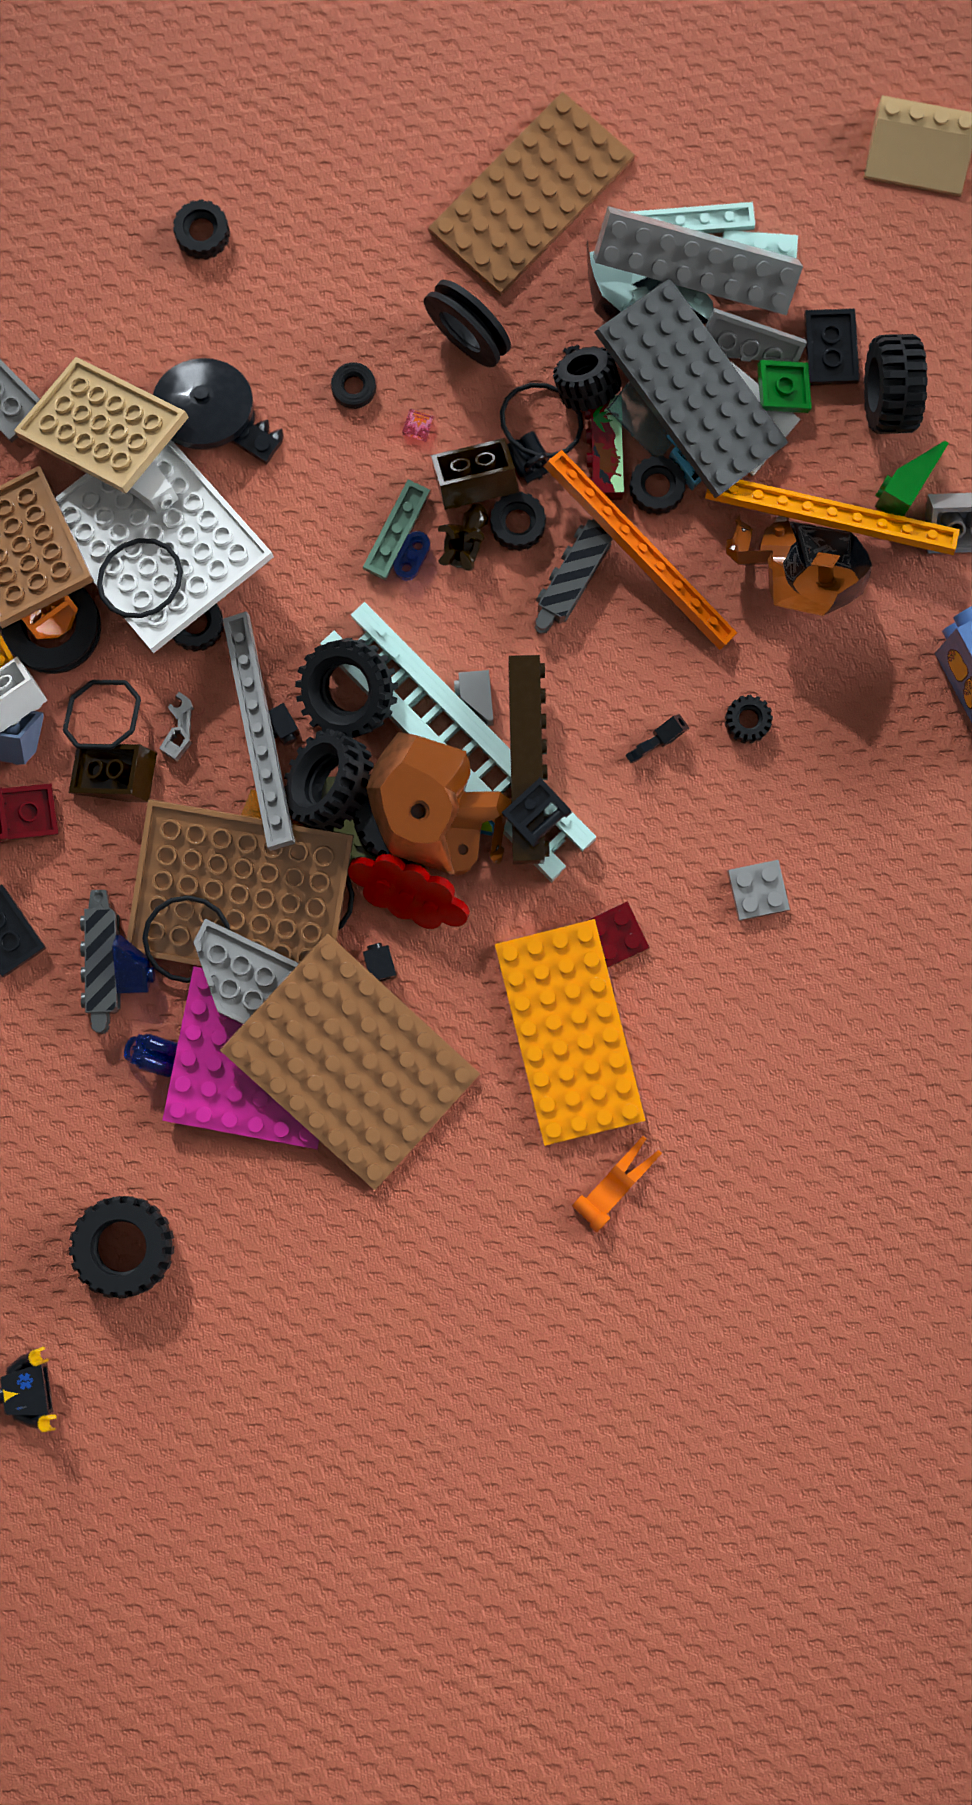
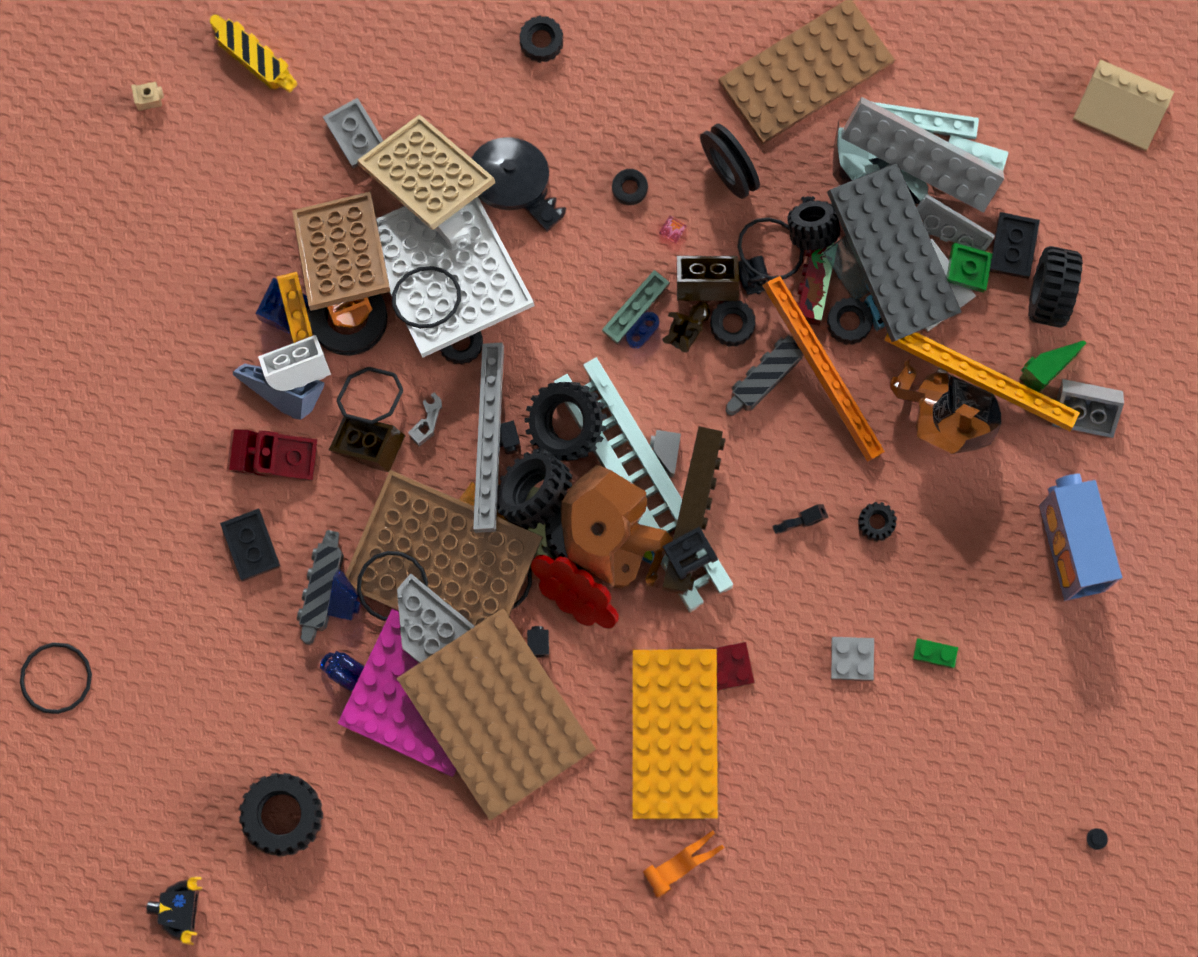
camera: 15 degrees right, 5 degrees down
(855, 859) = (935, 653): none -> green plate

